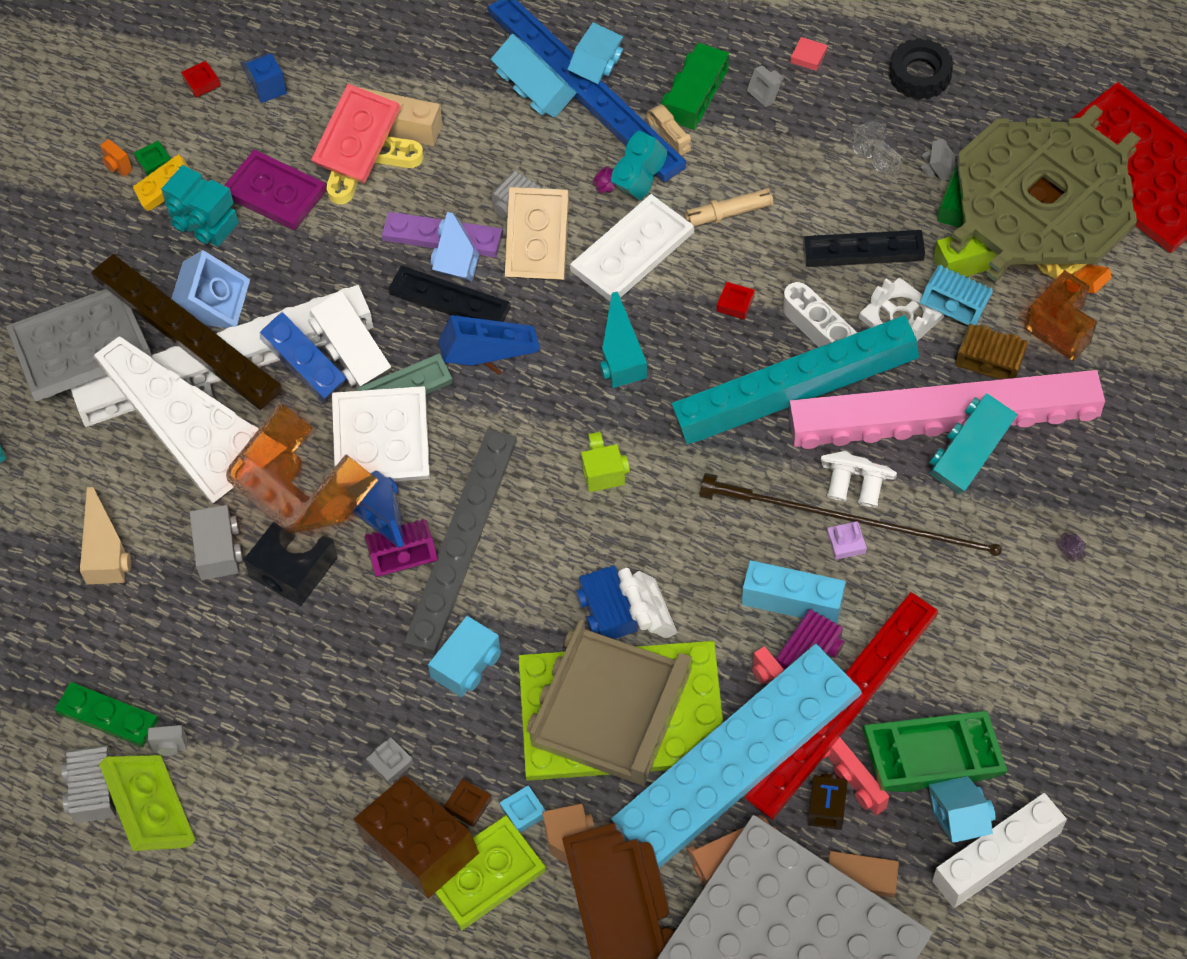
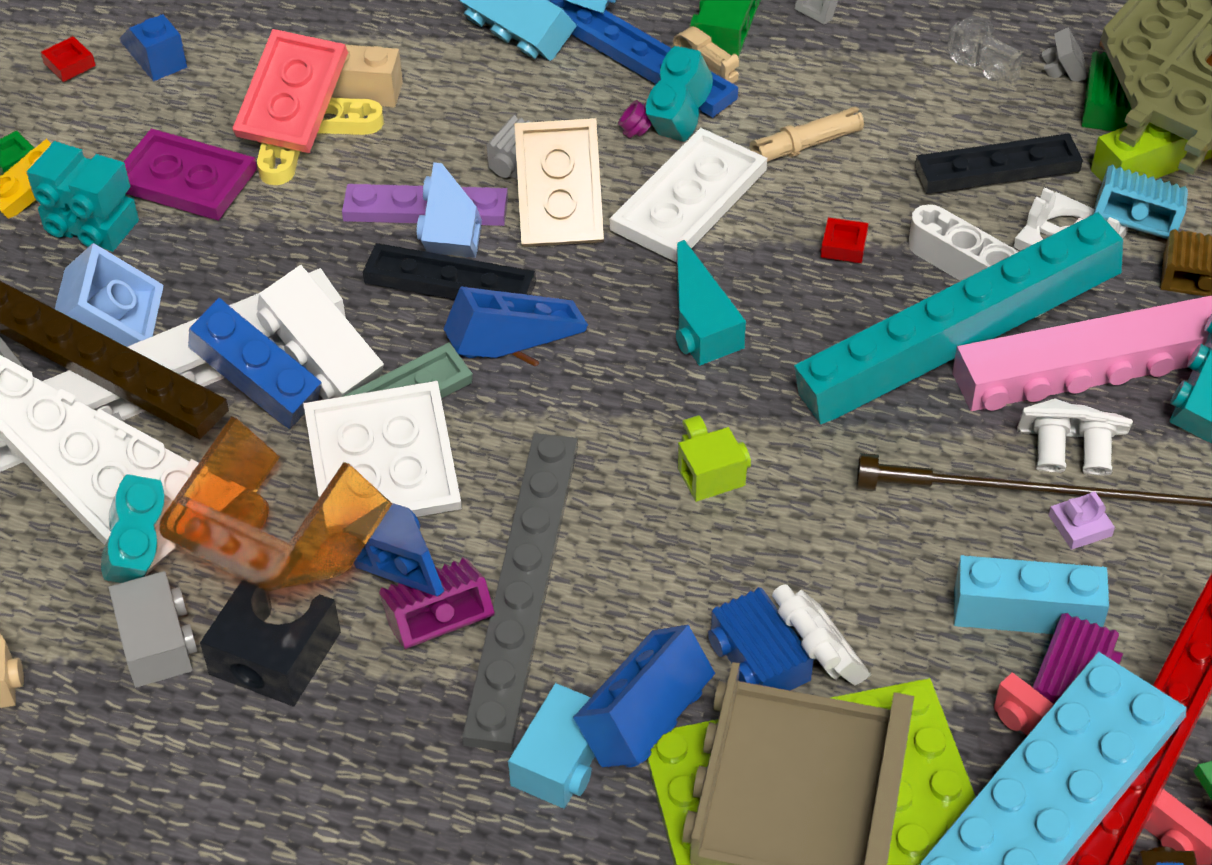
camera: 10 degrees left, 10 degrees down
(209, 466) = (132, 524): none -> teal brick
(522, 632) = (644, 697): none -> blue brick

